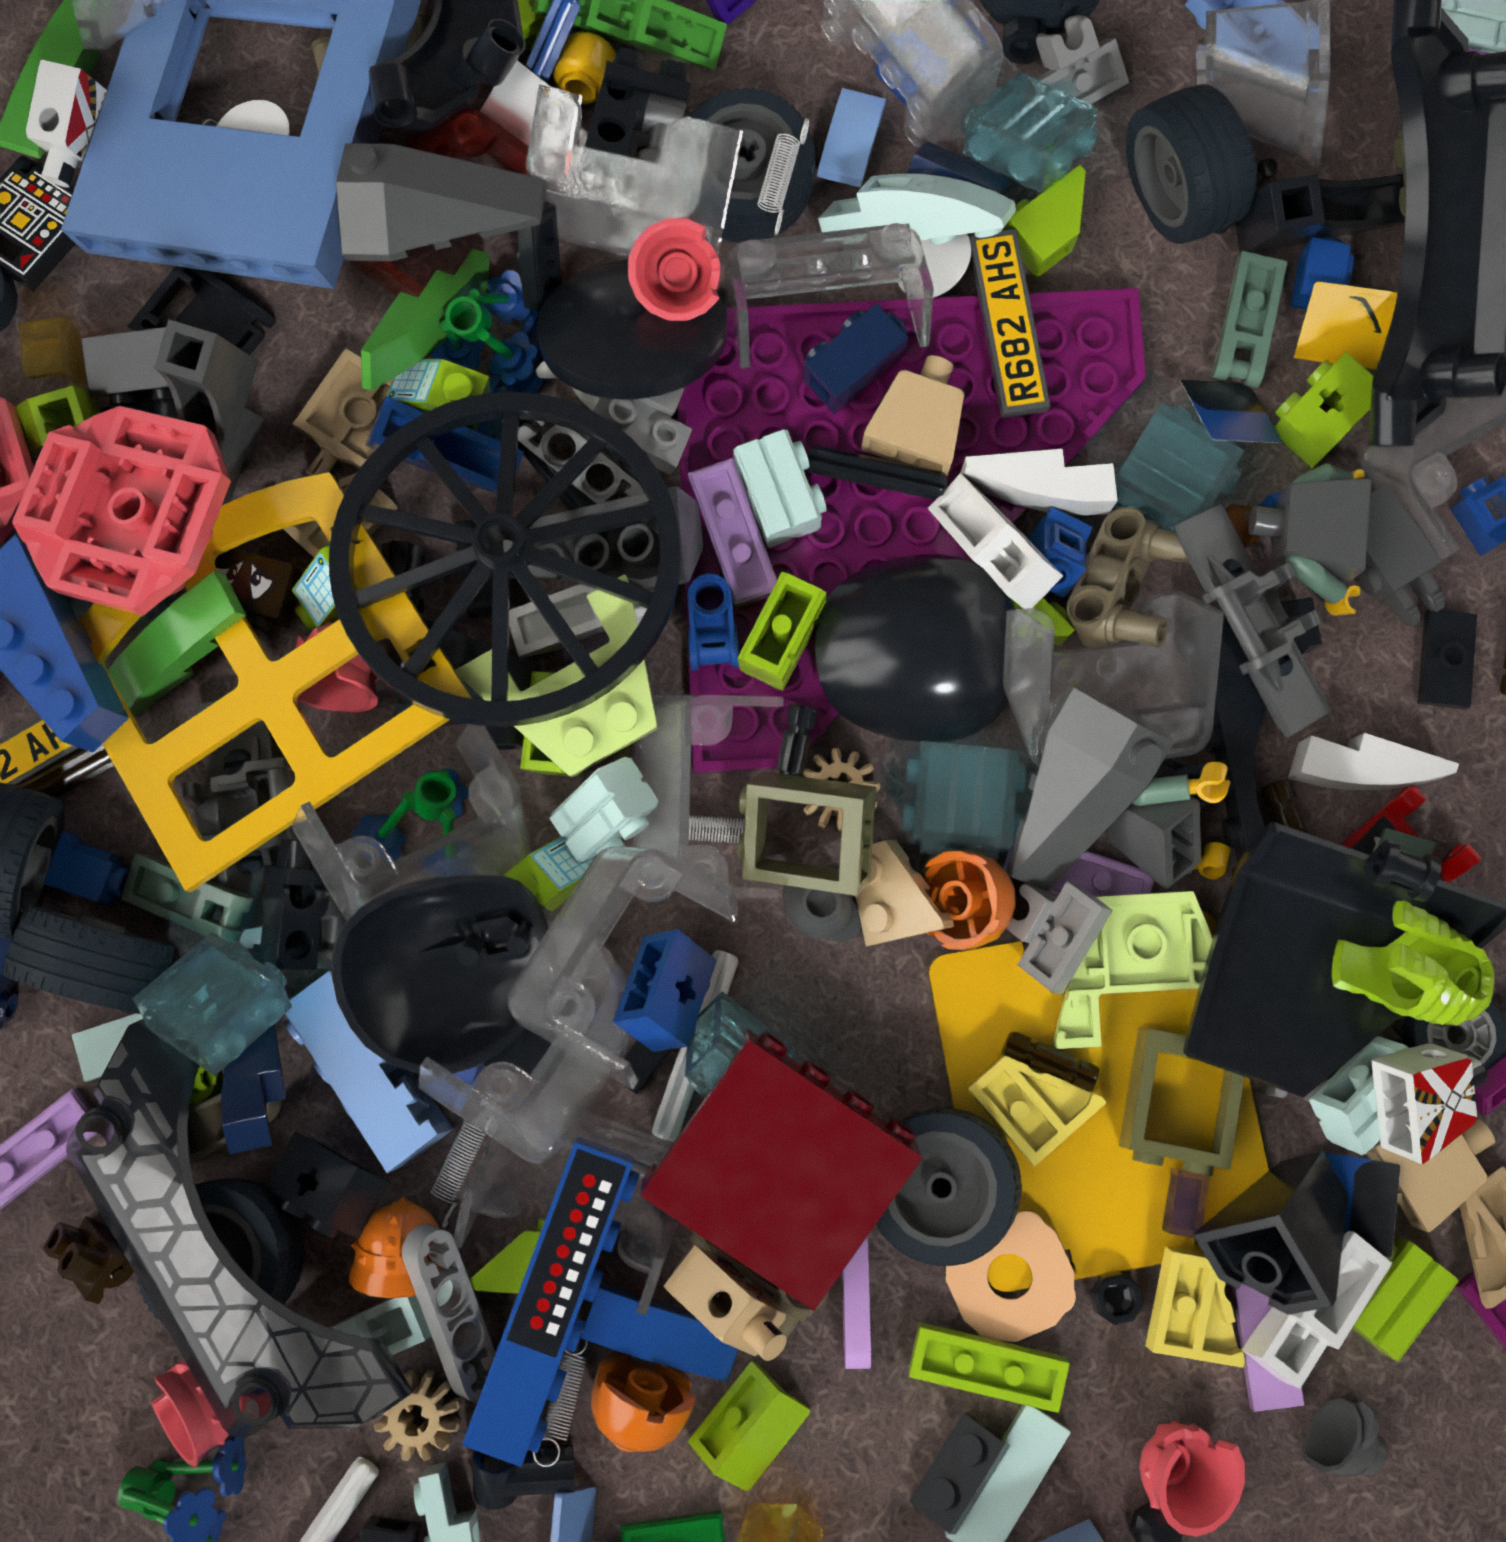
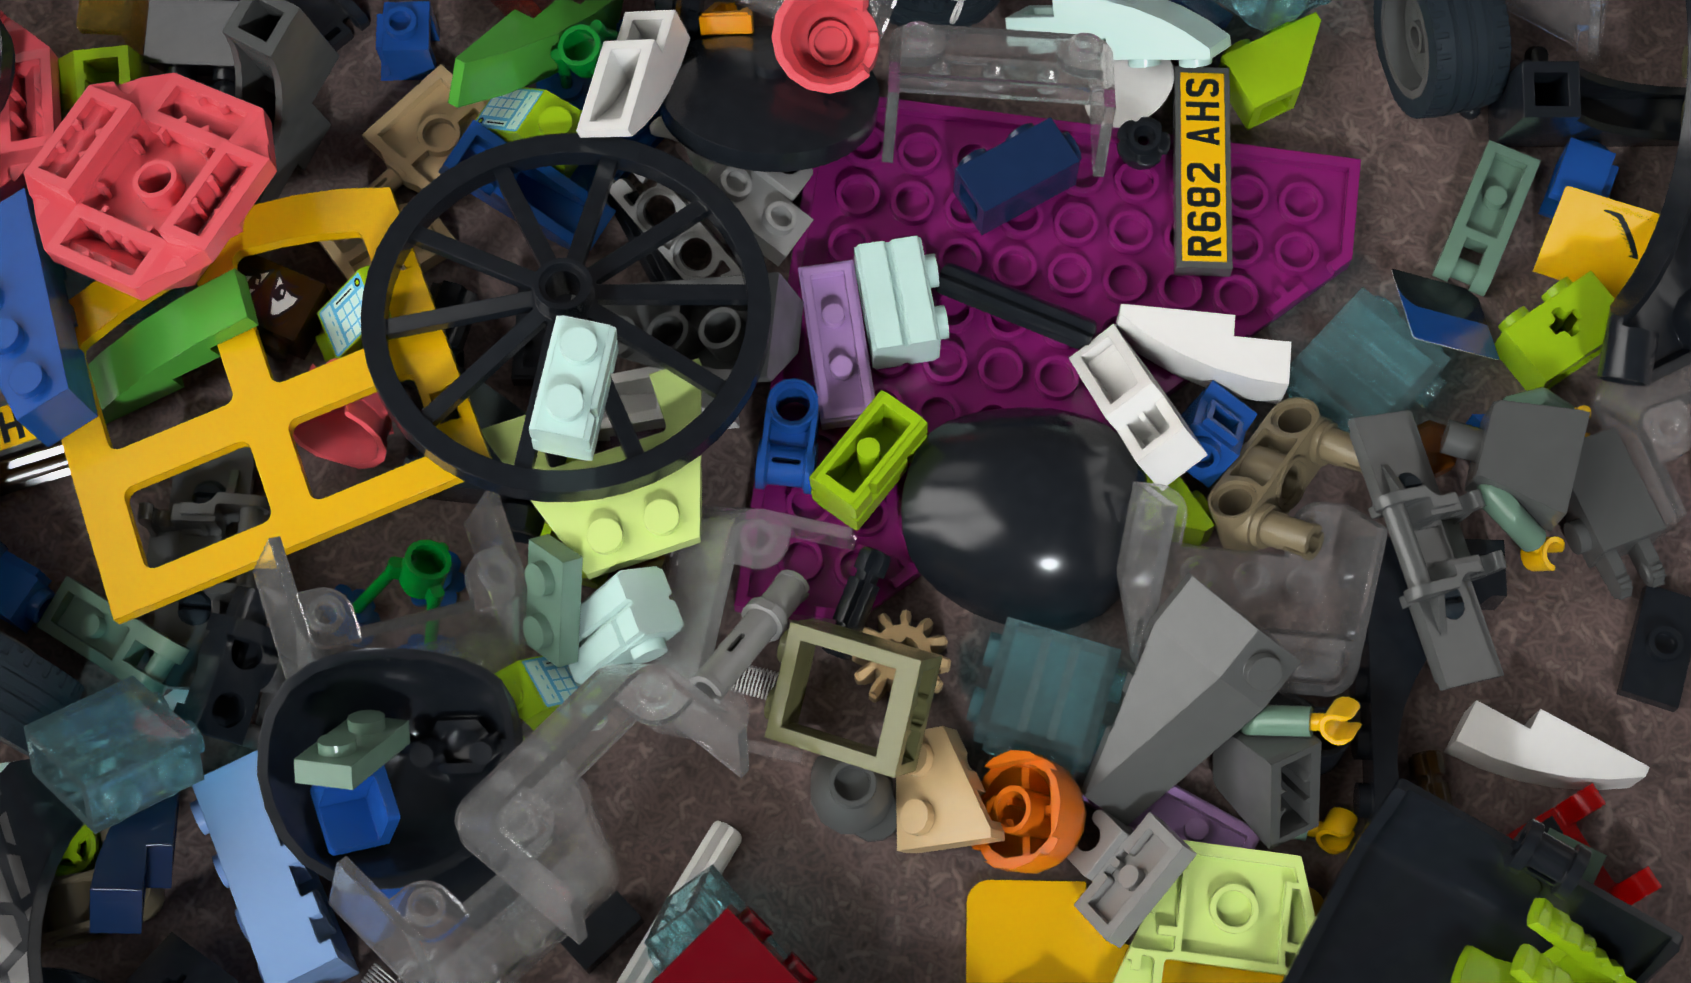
camera: 10 degrees right, 10 degrees down
(310, 332) = (405, 39): none -> blue window
(411, 969) = (352, 750): none -> sand green plate
(422, 1007) = (358, 816): none -> blue panel
(515, 332) = (634, 74): none -> white slope
(529, 627) = (574, 388): none -> light aqua brick
(546, 800) = (553, 600): none -> sand green plate
(578, 263) = (725, 19): none -> light orange tile
(665, 991) = (645, 850): blue brick -> none
(721, 785) = (762, 622): none -> light grey pin
(918, 418) = (1074, 254): tan torso -> none
(955, 320) = (1142, 156): none -> black plate

